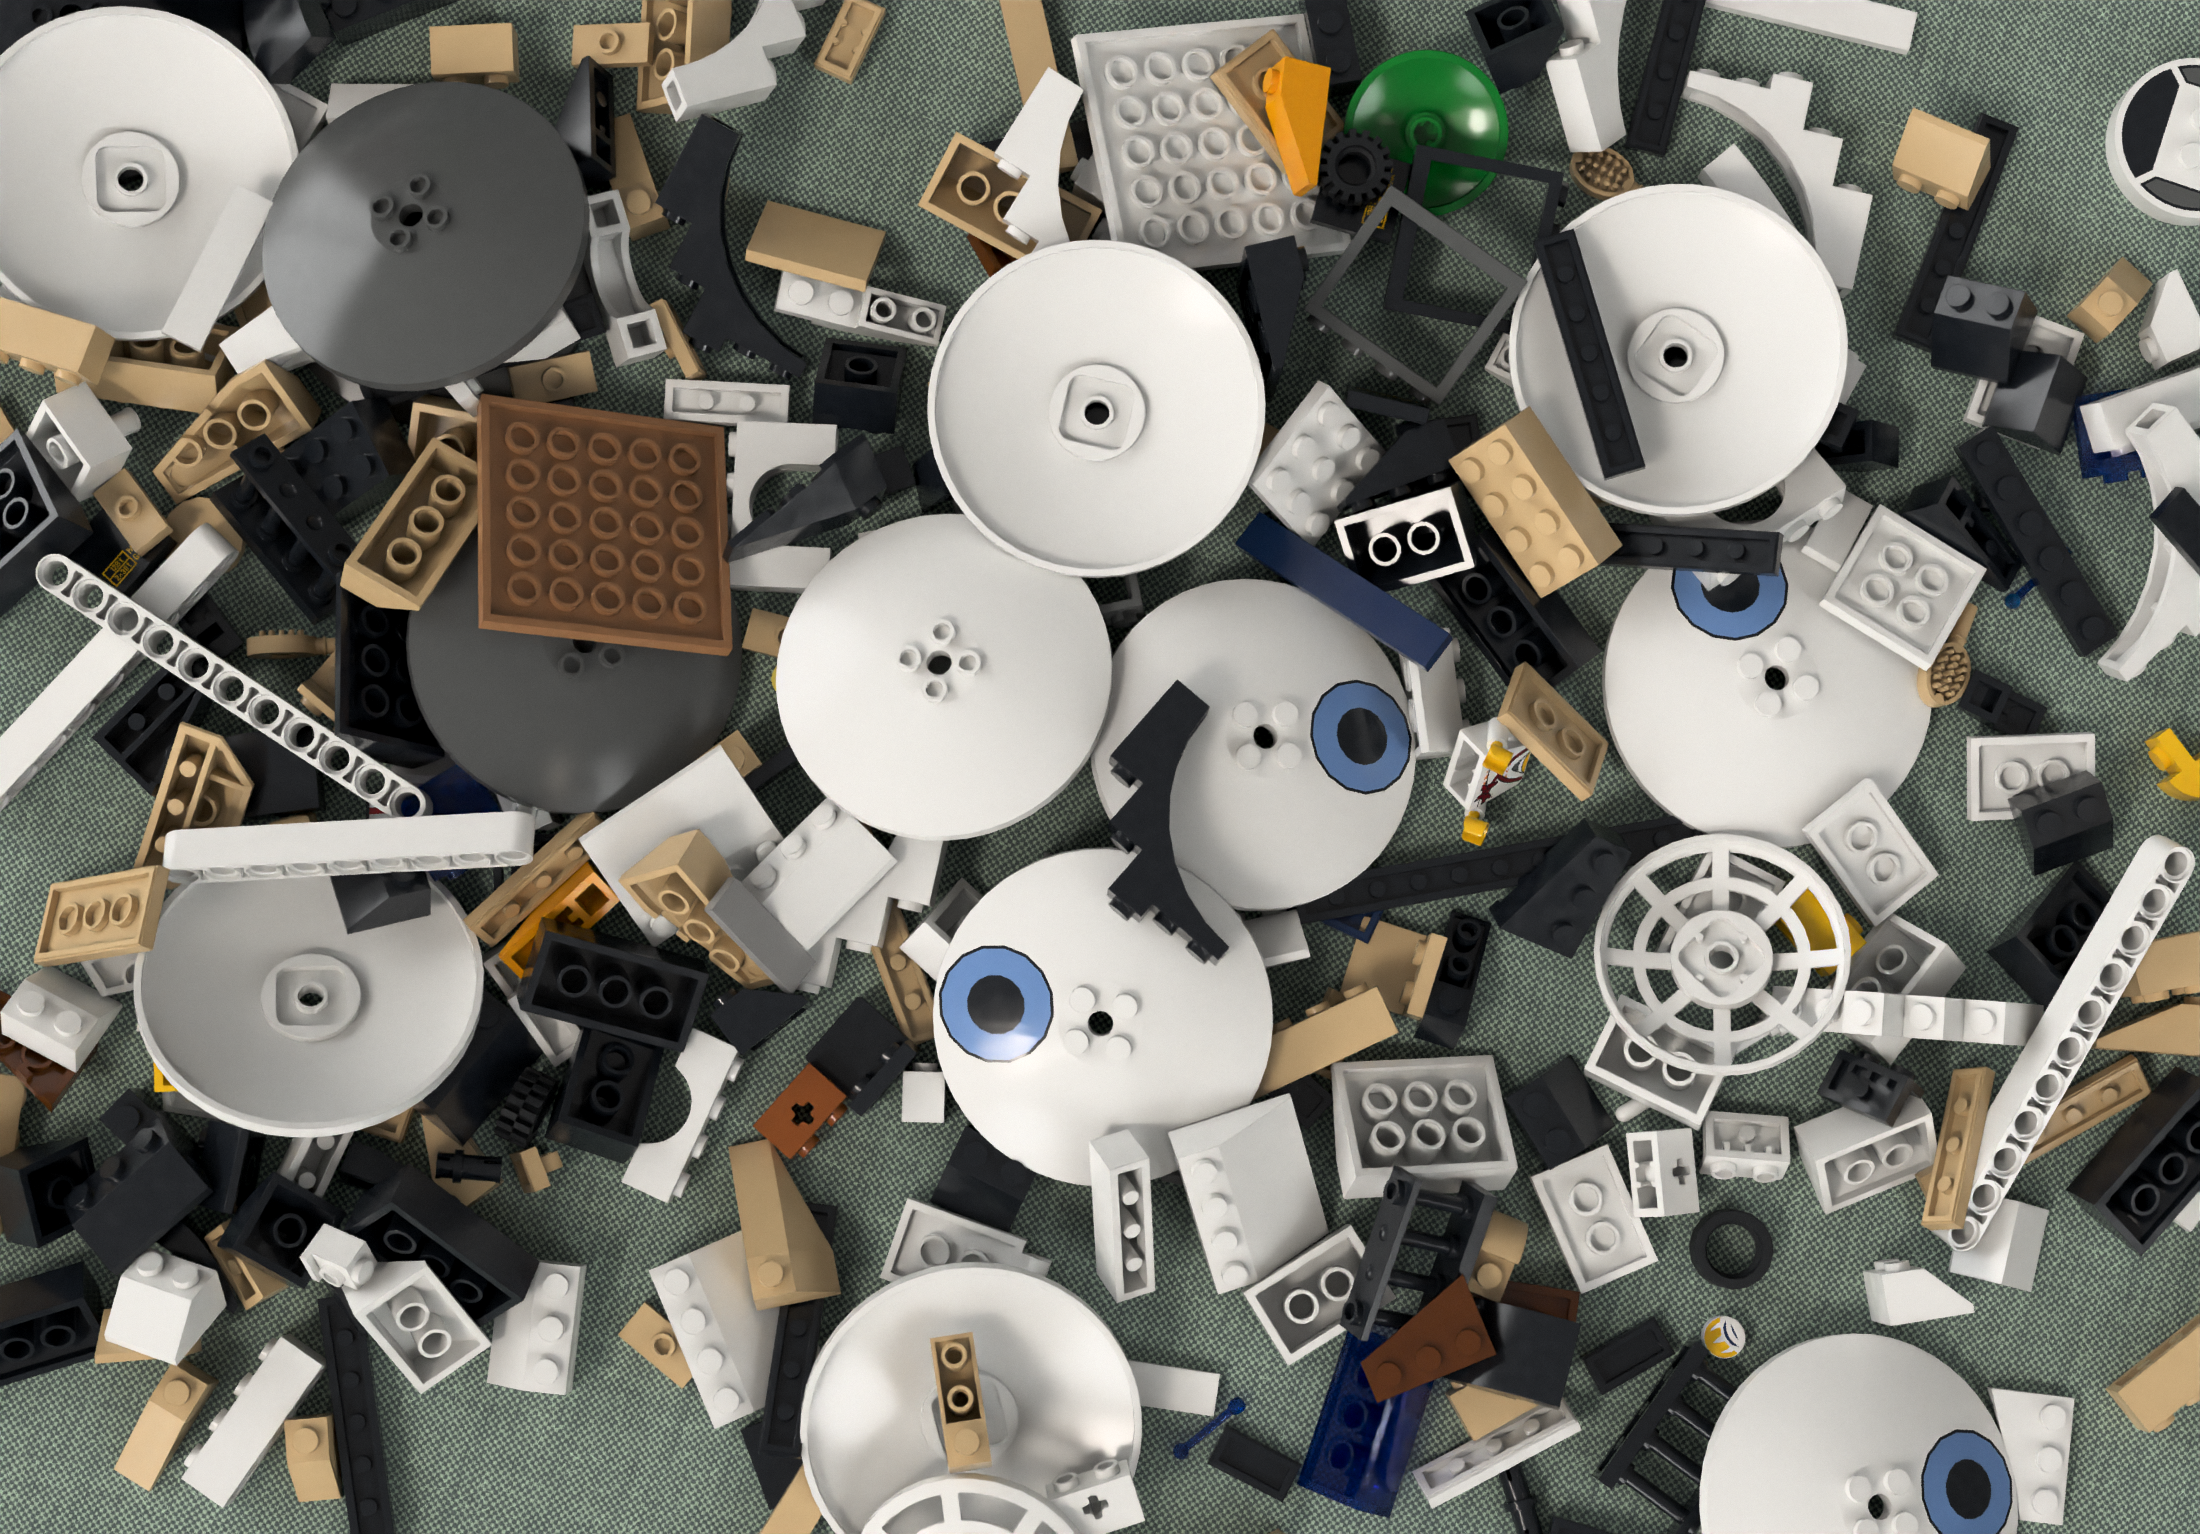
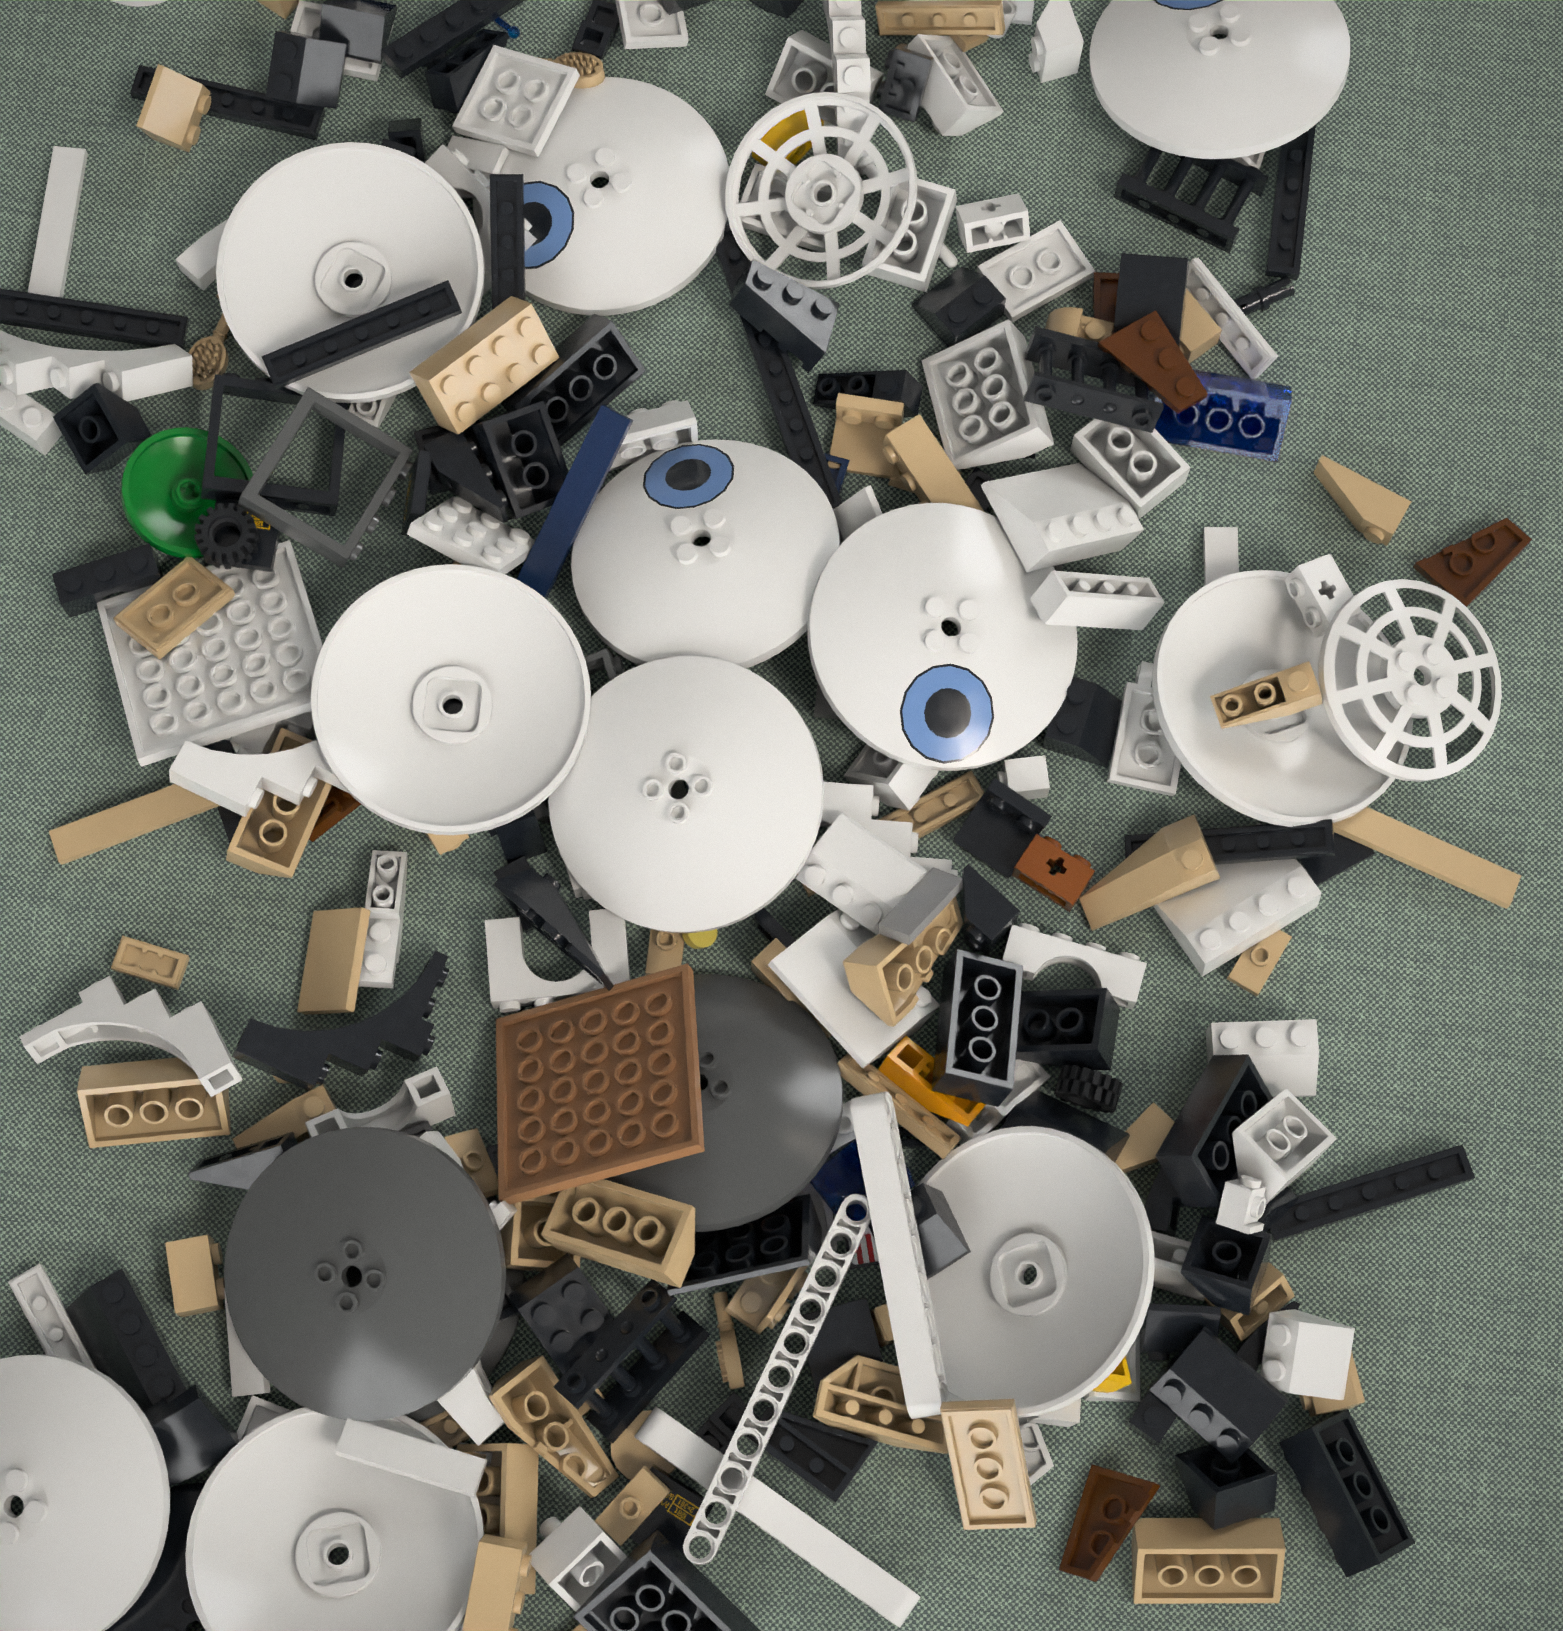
camera: 90 degrees left, 10 degrees down
(58, 1017) = (1078, 1495): white slope -> none
(165, 1423) = (1401, 1353): tan slope -> none
(254, 1420) = (1382, 1277): white brick -> none
(313, 1457) = (1401, 1223): tan slope -> none
(468, 1167) = (1146, 1129): black pin -> none
(533, 1168) = (1136, 1079): tan tile -> none
(614, 44) = (175, 1158): tan plate -> none
(677, 341) = (434, 1058): tan plate -> none
(725, 402) = (475, 1019): white plate -> none
(859, 385) = (447, 911): black slope -> none
(1152, 879) = (787, 609): black arch -> none
(1235, 1407) = (1267, 549): clear blue hinge -> none
(1254, 1463) = (1267, 495): black tile -> none
(1269, 296) = (345, 569): black slope -> none
(1297, 117) = (188, 583): light orange slope -> none
(1482, 767) = (698, 385): white torso -> none
(1553, 731) = (663, 335): tan tile -> none
(1627, 1355) = (1133, 233): black tile -> none
(1723, 1336) = (1108, 171): tile -> none
(1745, 1146) = (963, 167): white bracket -> none
(1759, 1233) = (1041, 149): black tyre -> none
(1809, 159) = (180, 210): white arch -> none
(1870, 852) = (723, 104): white plate -> none

